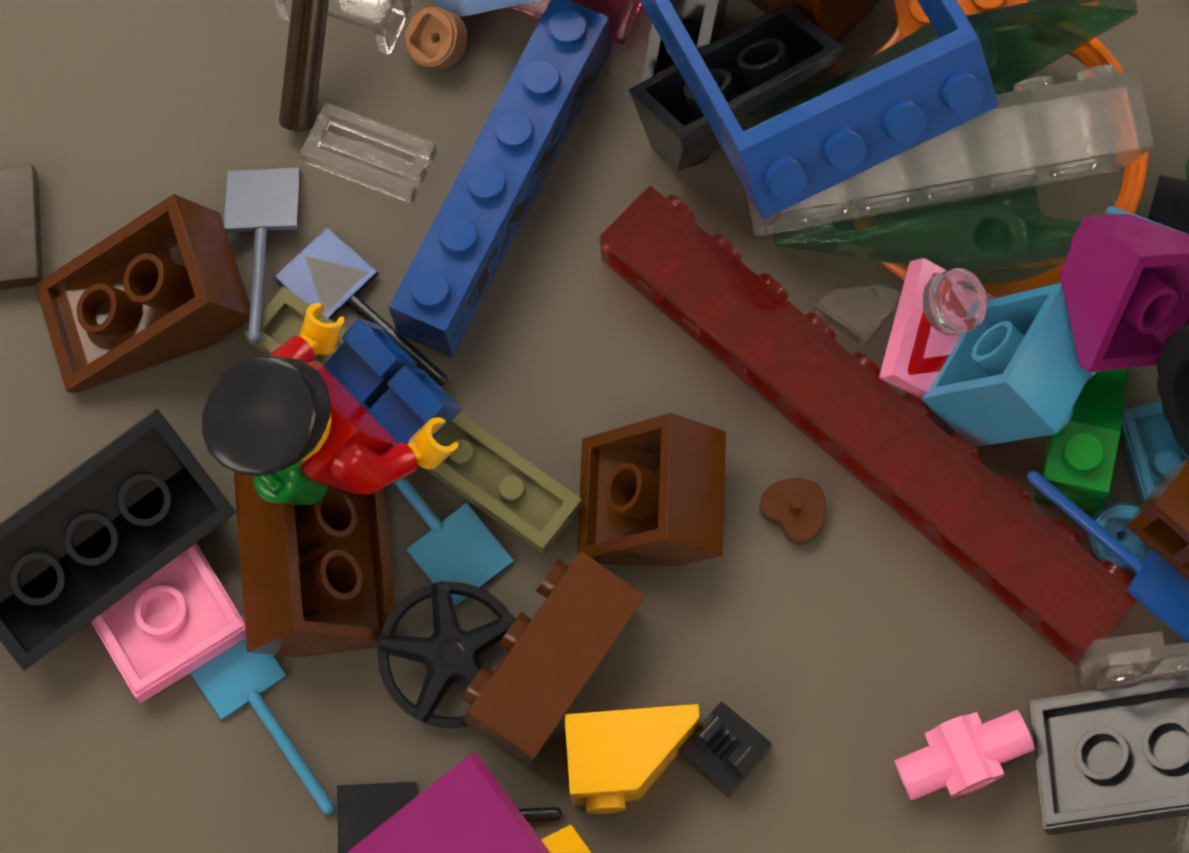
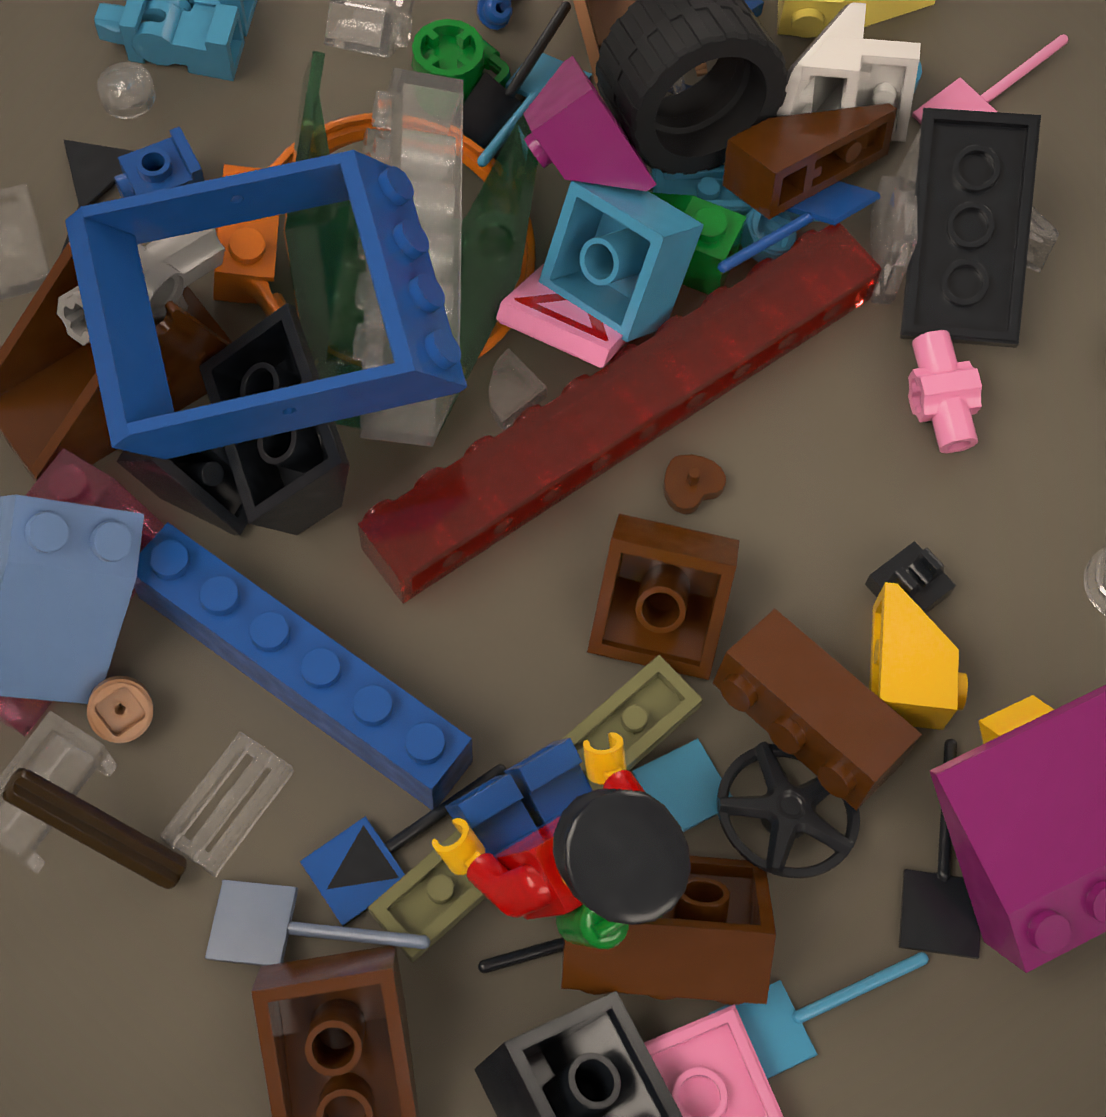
camera: 90 degrees left, 5 degrees down
(954, 301) = (545, 290): clear tile -> none

